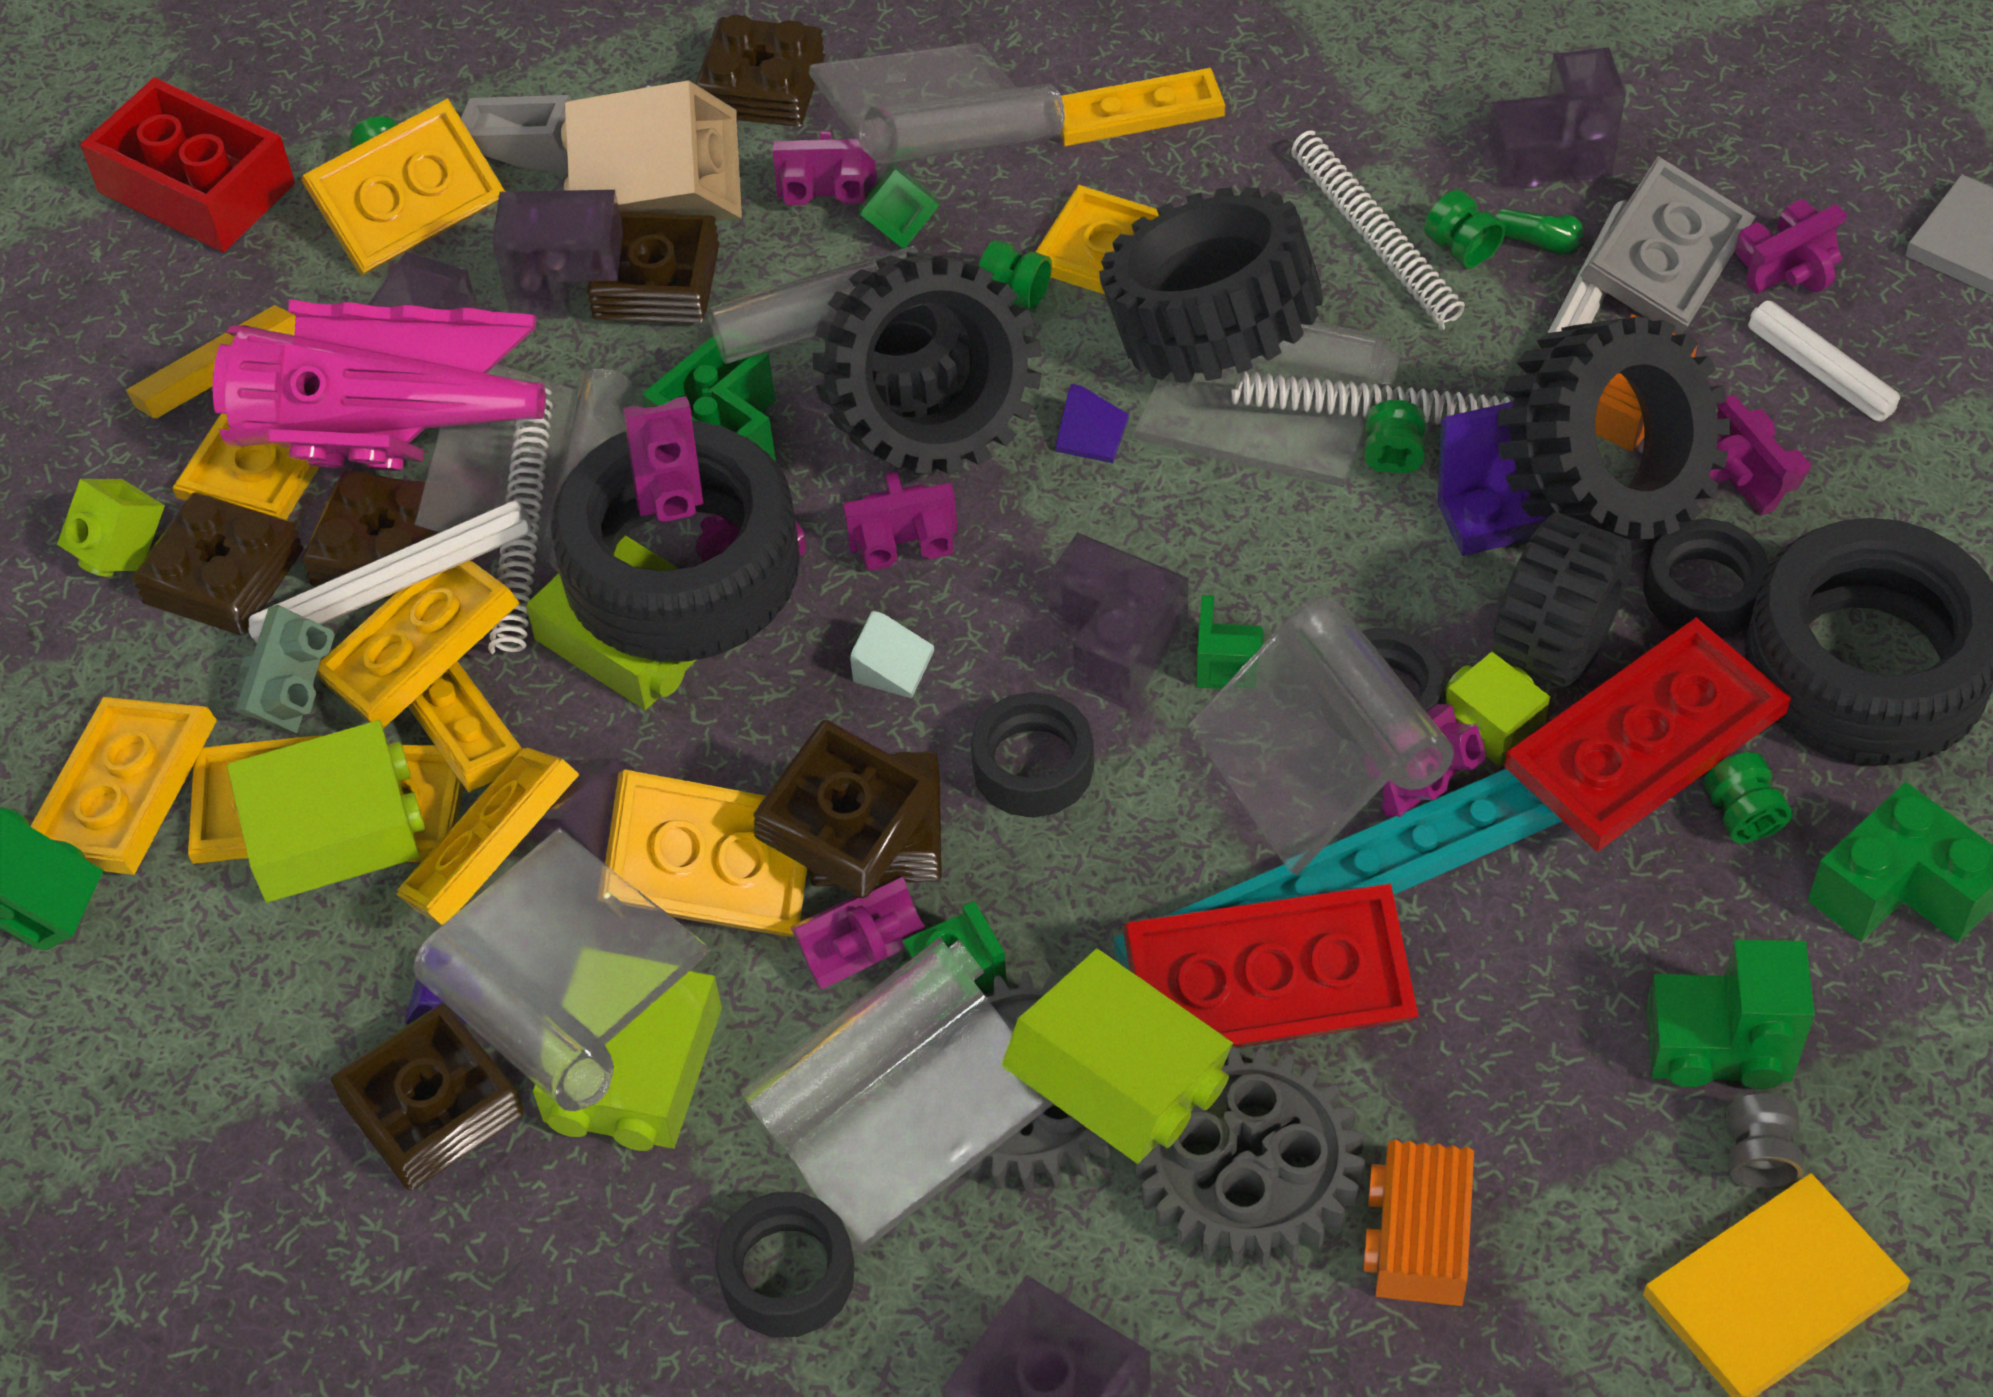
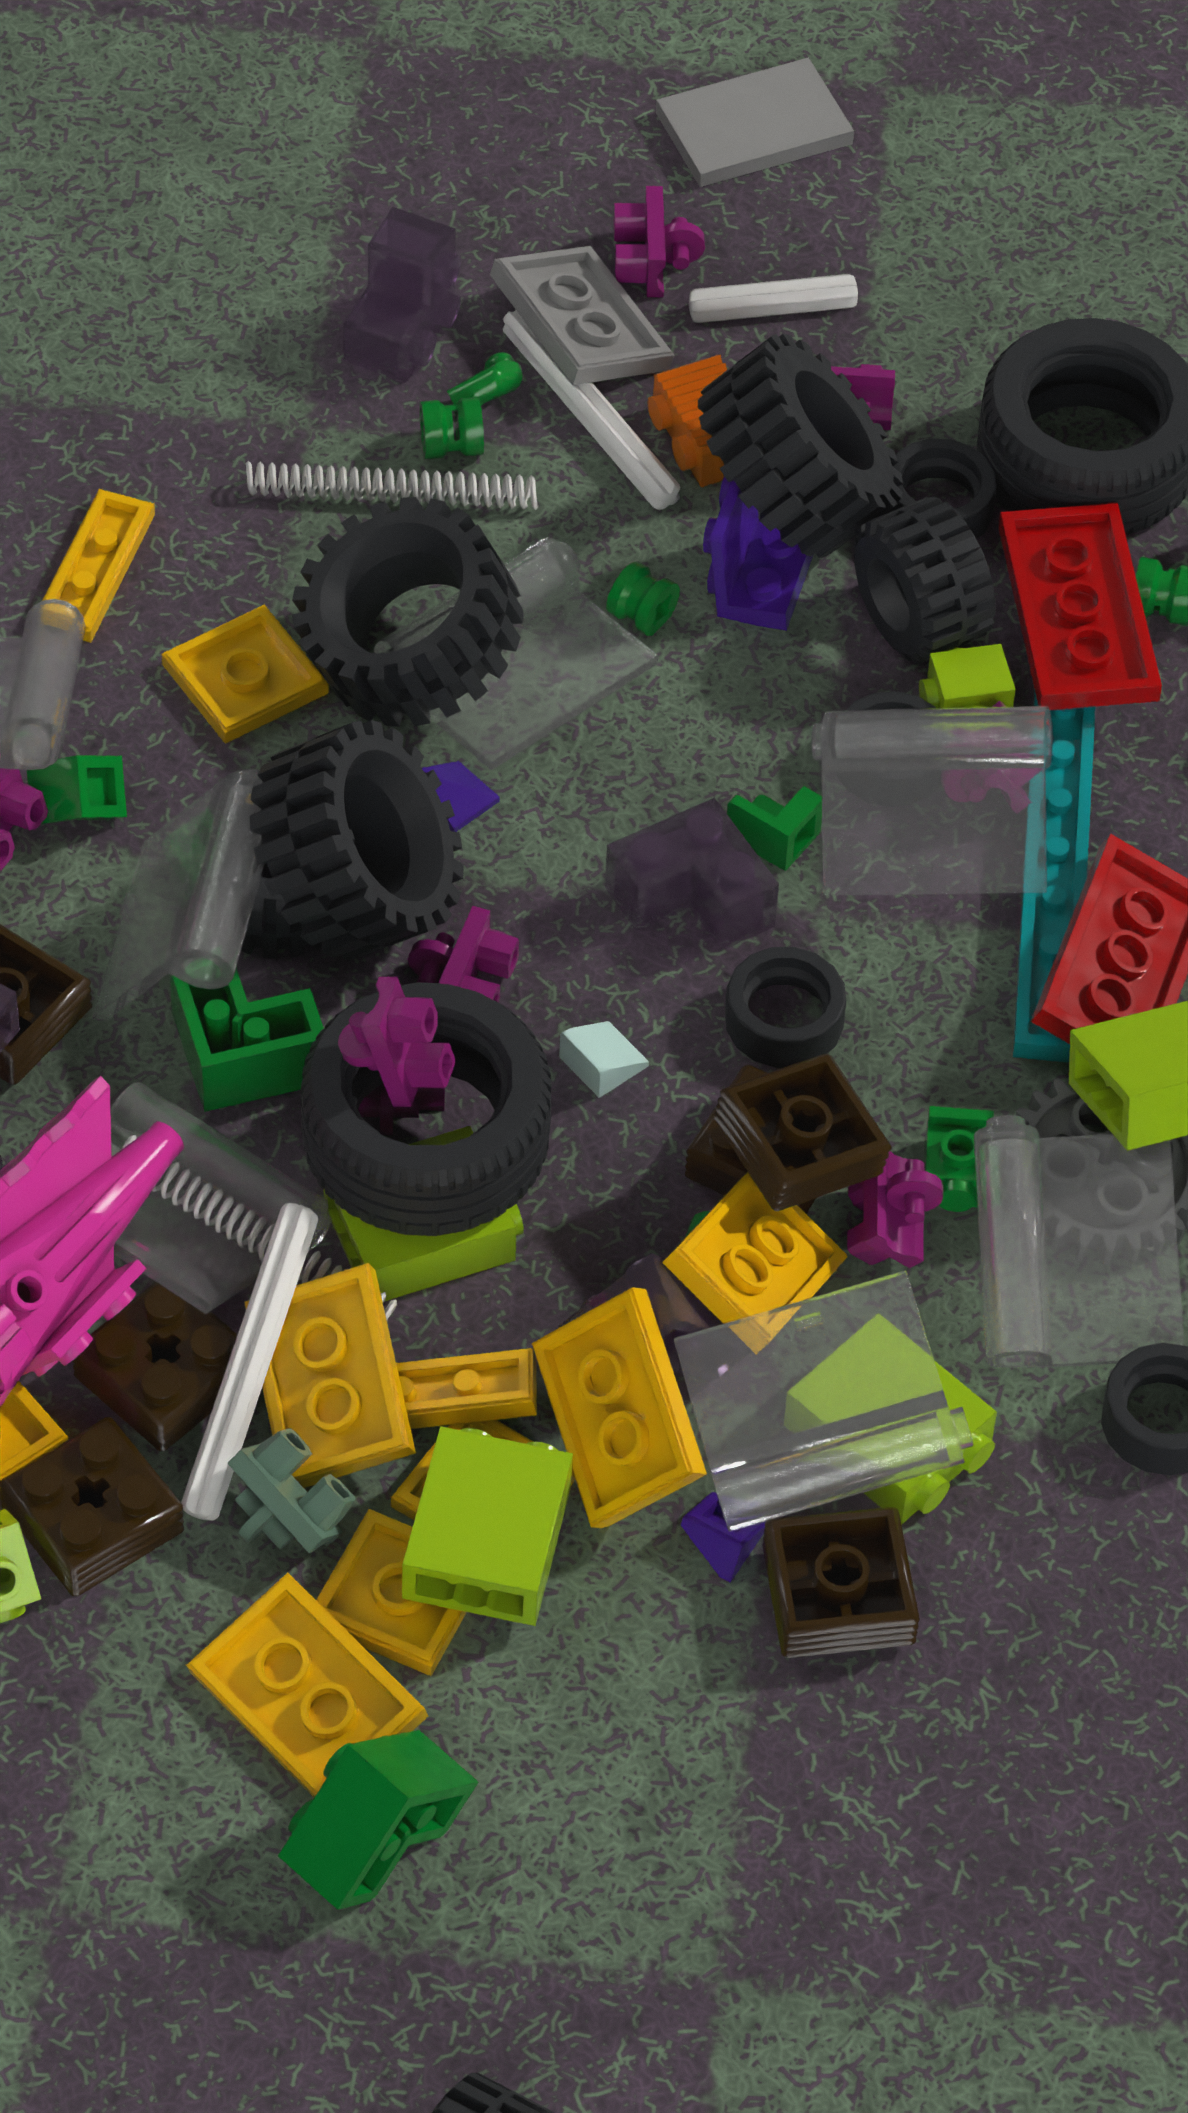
camera: 65 degrees left, 0 degrees up
(1025, 274) = (240, 748): green wheel -> none
(1355, 394) = (584, 604): white piece -> none

